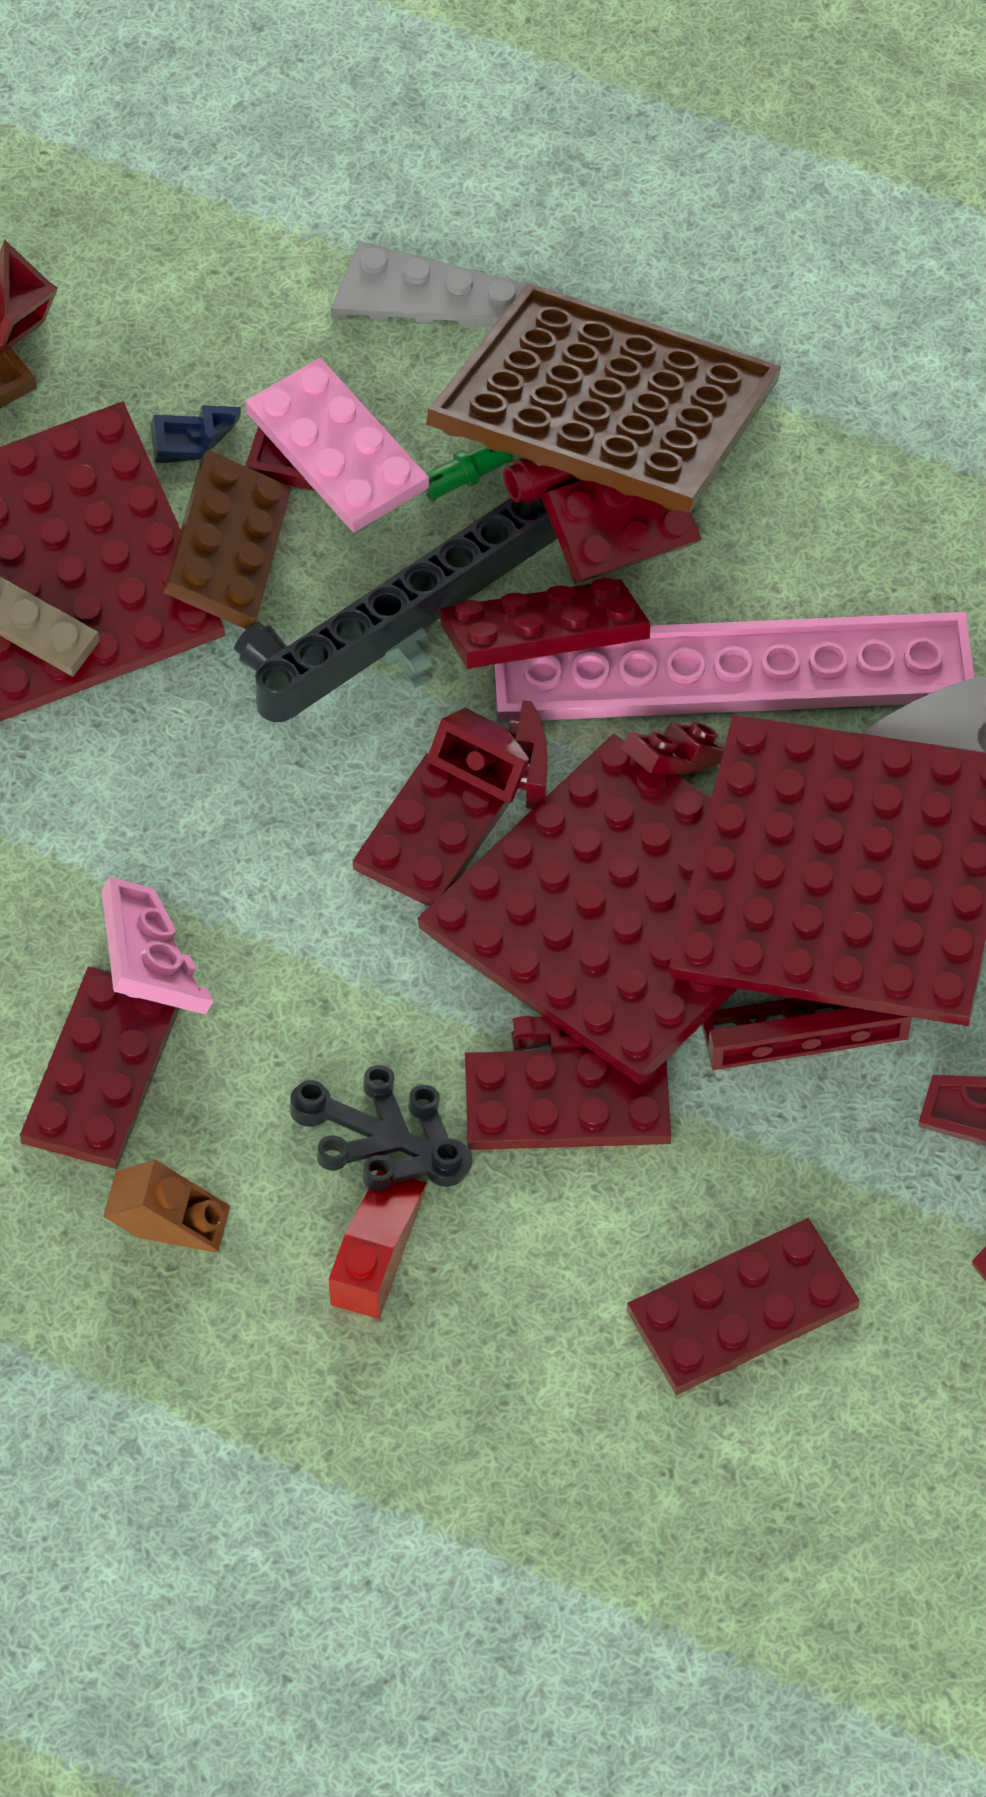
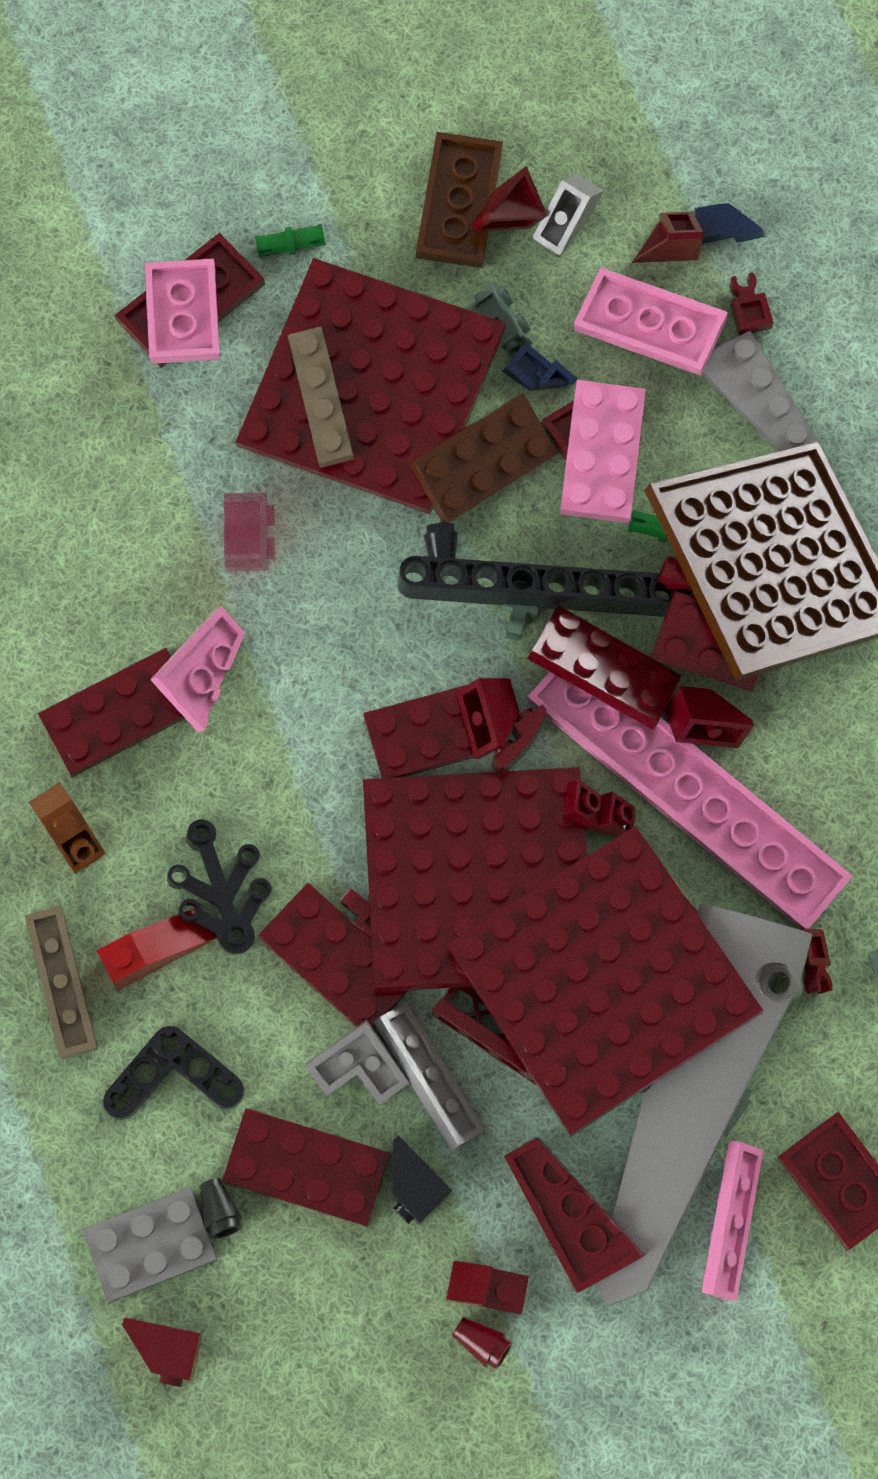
camera: 40 degrees right, 15 degrees up
(58, 795) = (247, 532): none -> clear pink brick
(74, 275) = (567, 212): none -> light grey slope
(89, 398) = (497, 305): none -> sand green hinge
(201, 220) = (673, 239): none -> dark red slope
(233, 169) = (726, 222): none -> dark blue slope
(257, 303) = (650, 321): none -> bright pink plate
(317, 1355) = (61, 982): none -> dark tan plate
(337, 224) = (749, 309): none -> dark red plate
(500, 1338) = (164, 1063): none -> black beam
(669, 1512) = (149, 1245): none -> light grey plate
(685, 1154) = (359, 1054): none -> light grey plate
(687, 590) = (706, 718): none -> dark red slope
(704, 1415) = (219, 1210): none -> pearl dark grey cone
(772, 1117) = (429, 1076): none -> light grey plate
(790, 1584) = (165, 1349): none -> dark red slope
(861, 1219) = (415, 1185): none -> black slope

